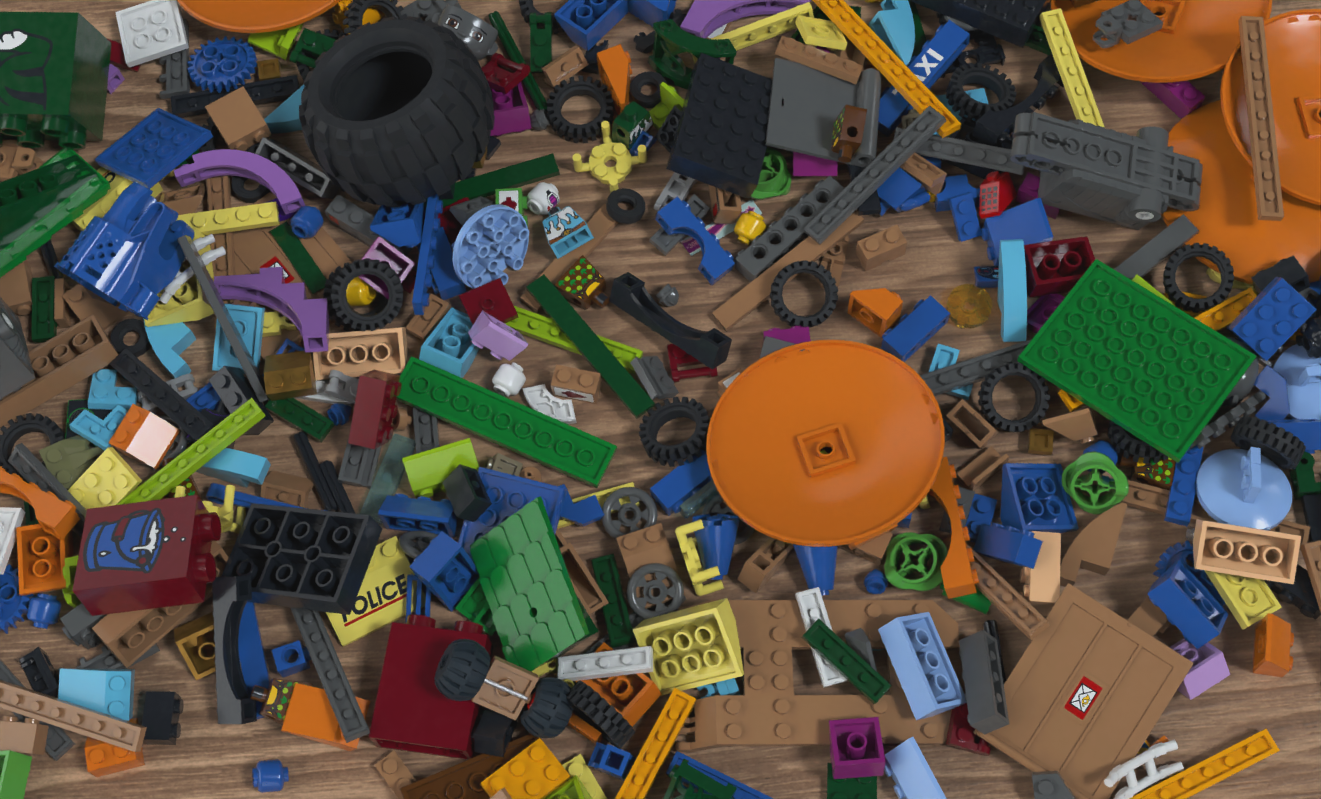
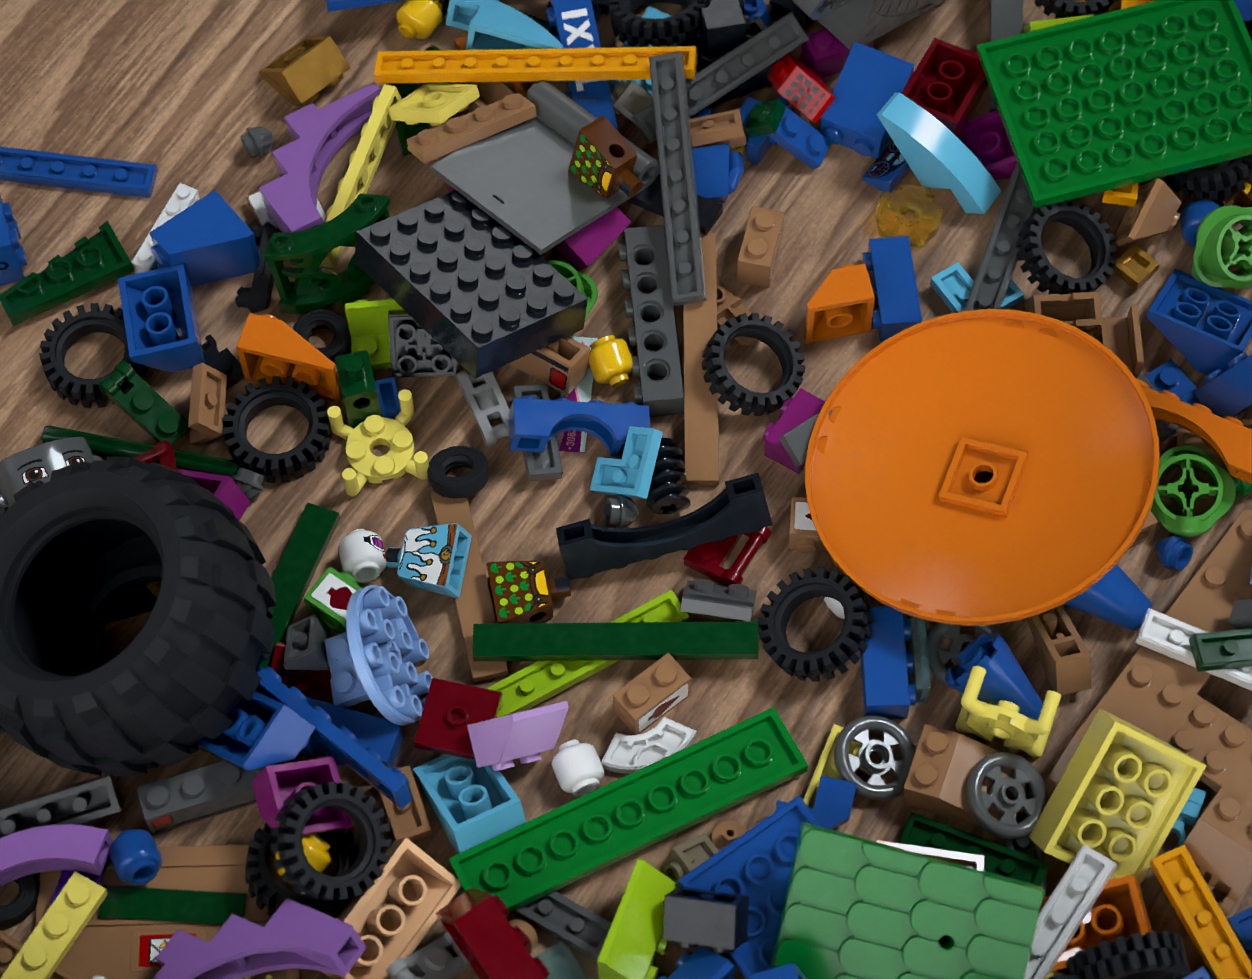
camera: 55 degrees left, 5 degrees down
(687, 281) = (633, 472): none -> medium azure plate
(702, 299) = (667, 483): none -> black piece
(955, 190) = (765, 118): none -> dark green plate

